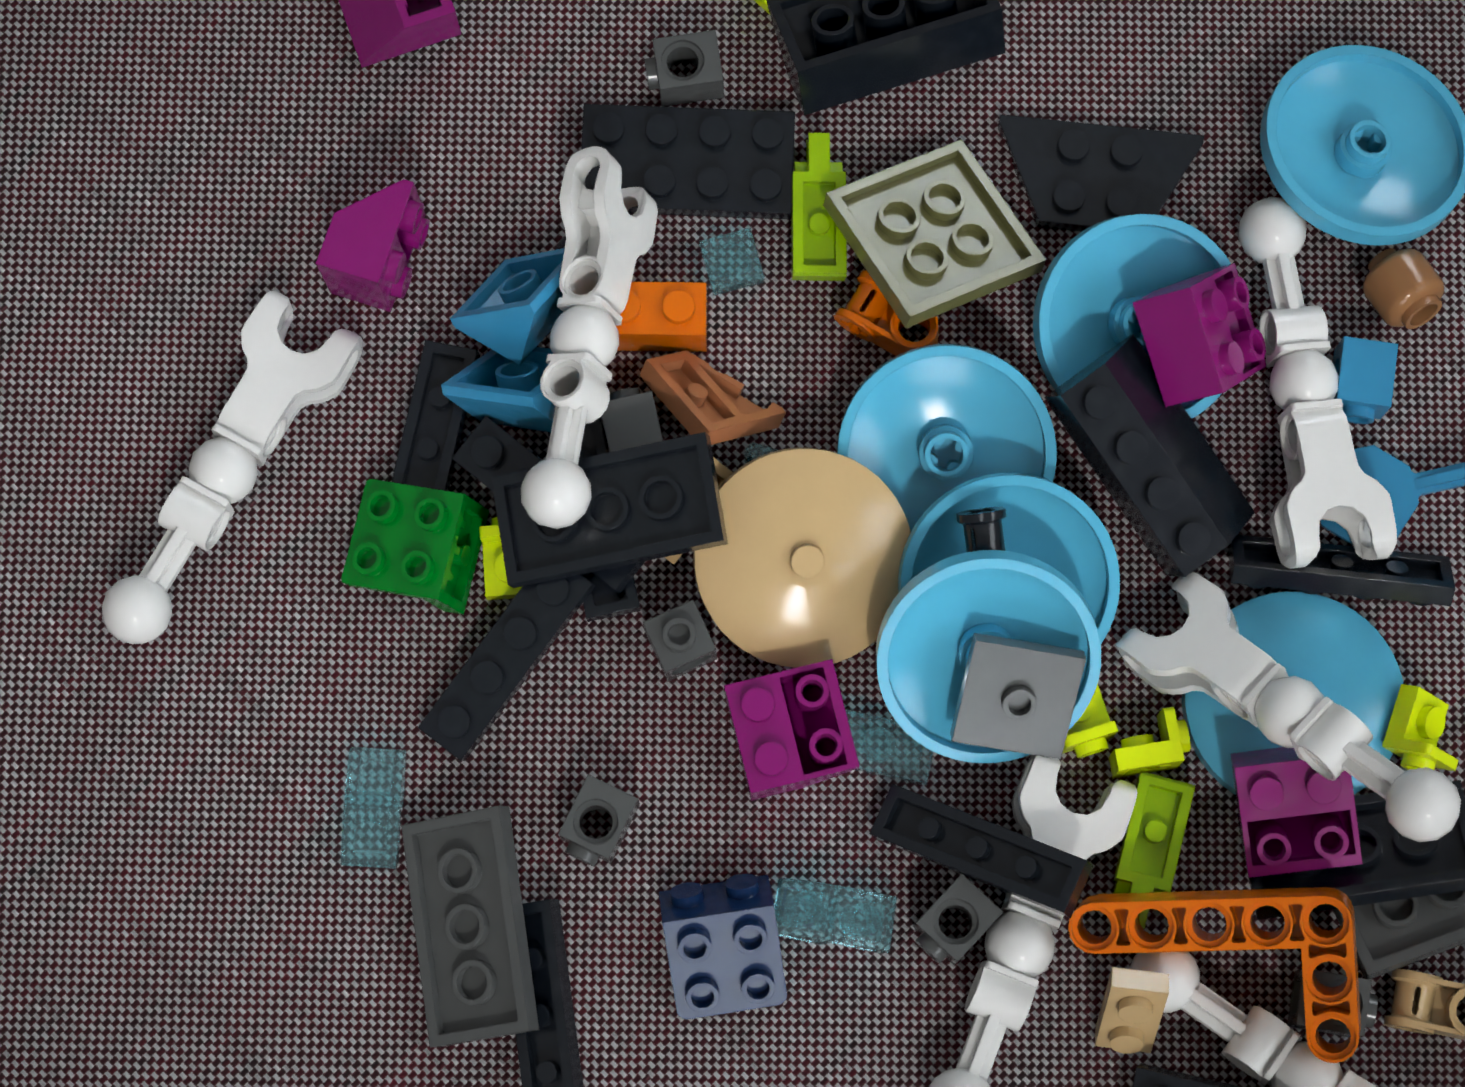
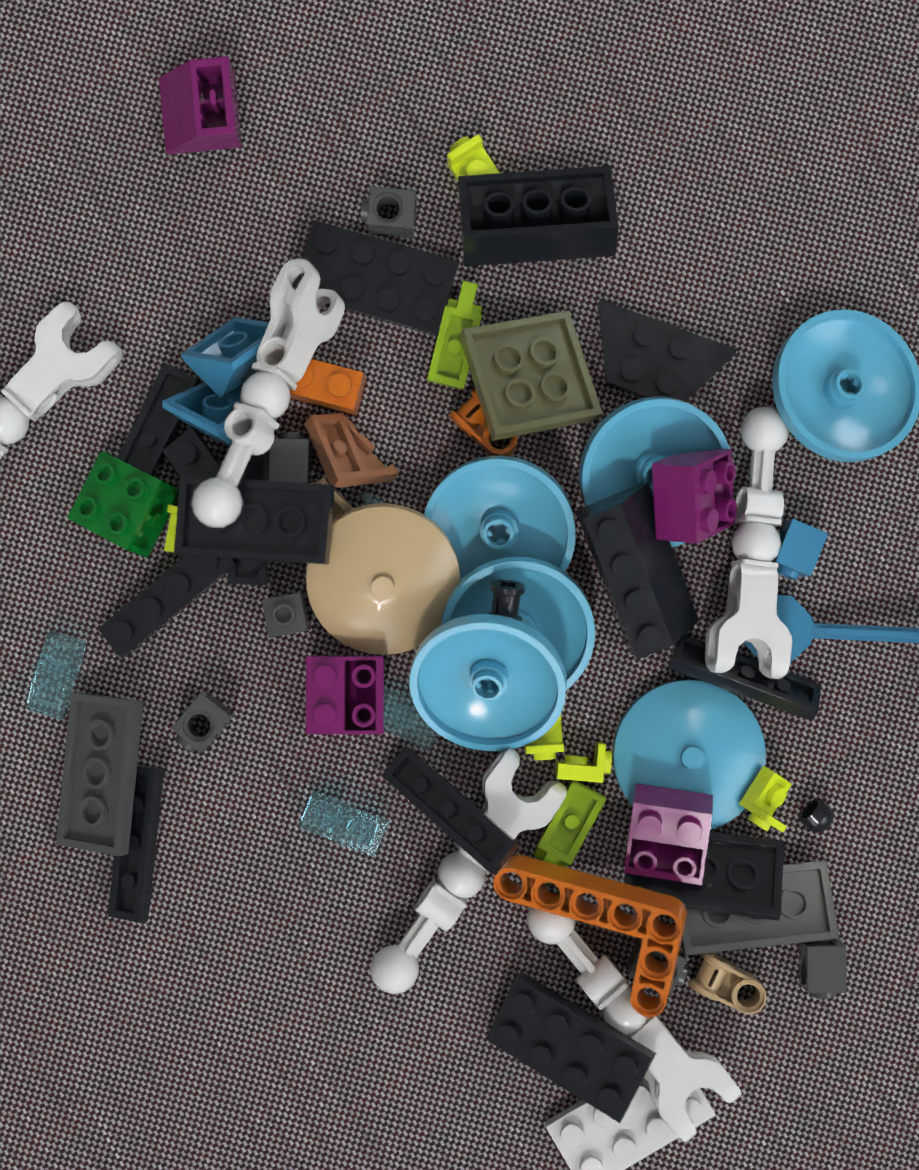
camera: 10 degrees right, 10 degrees up
(372, 244) = (142, 287): magenta slope -> none
(723, 946) = (265, 824): bracket -> none
(731, 261) = (389, 357): clear light blue tile -> none
(973, 903) = (435, 836): dark grey brick -> none
(1017, 696) = (501, 715): plate -> none
(1131, 1010) = (522, 940): tan plate -> none
(1288, 710) = (679, 774): white piece -> none
(1403, 288) = (843, 492): medium nougat head -> none

